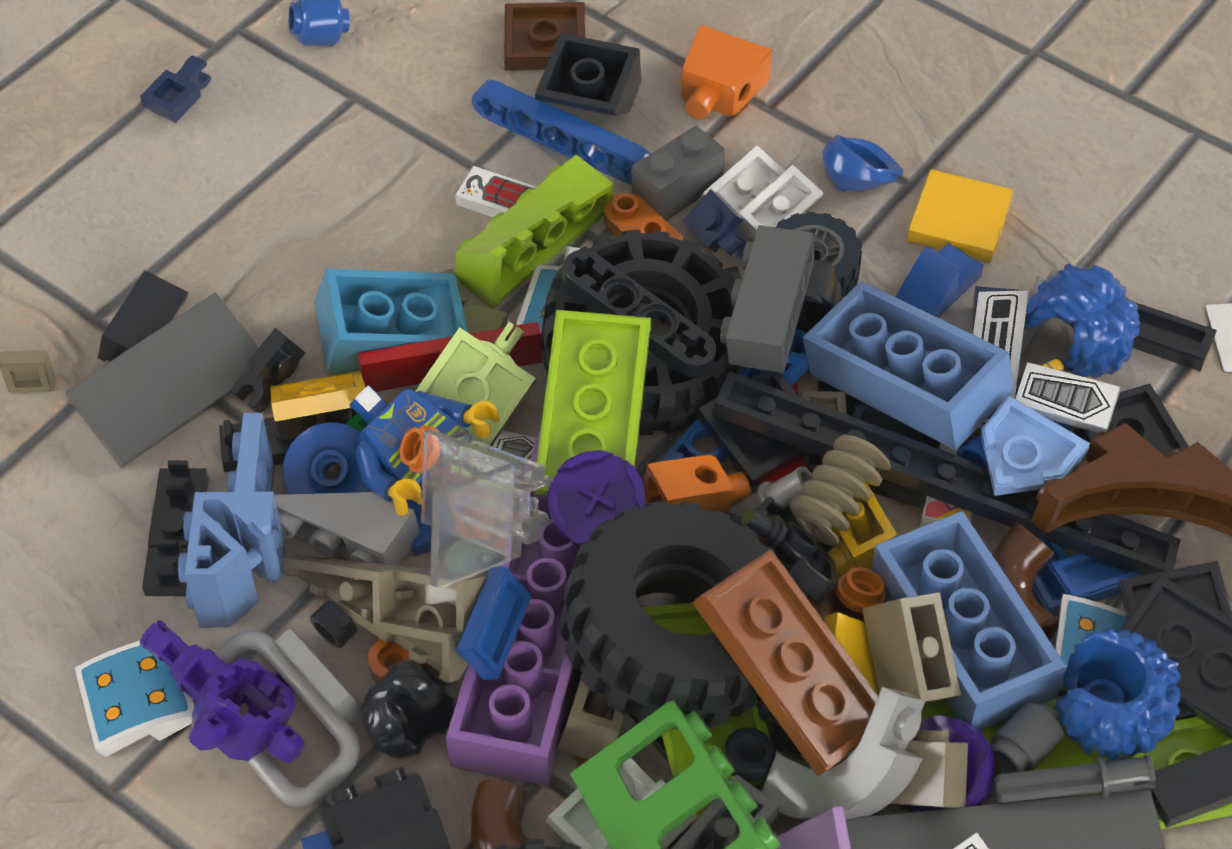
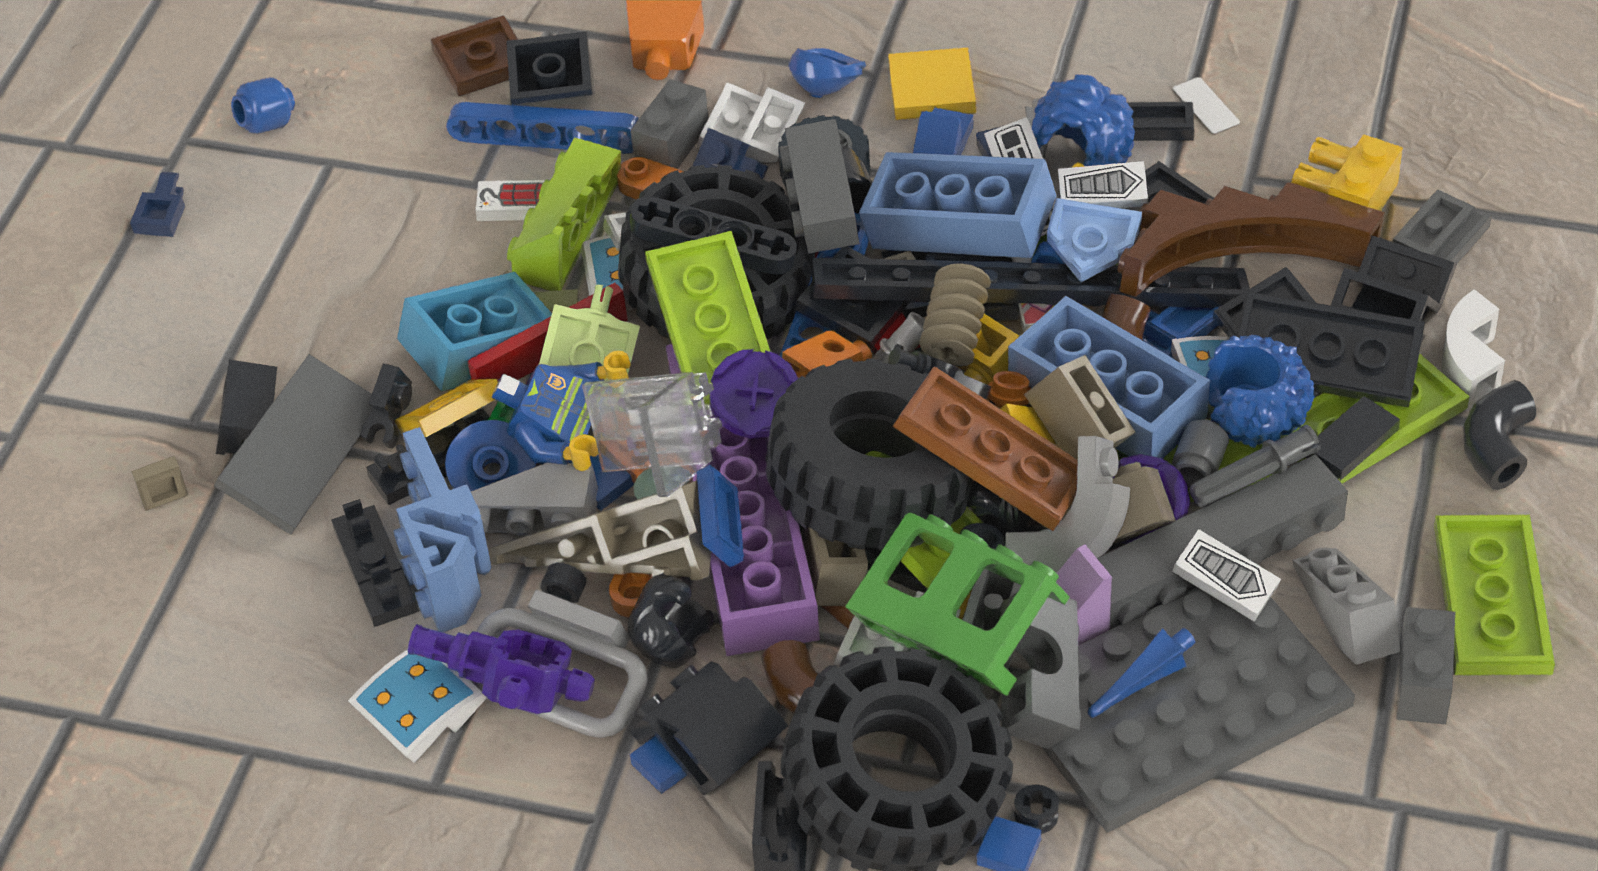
camera: 20 degrees left, 5 degrees down
(412, 448) = (573, 408): orange plate -> none

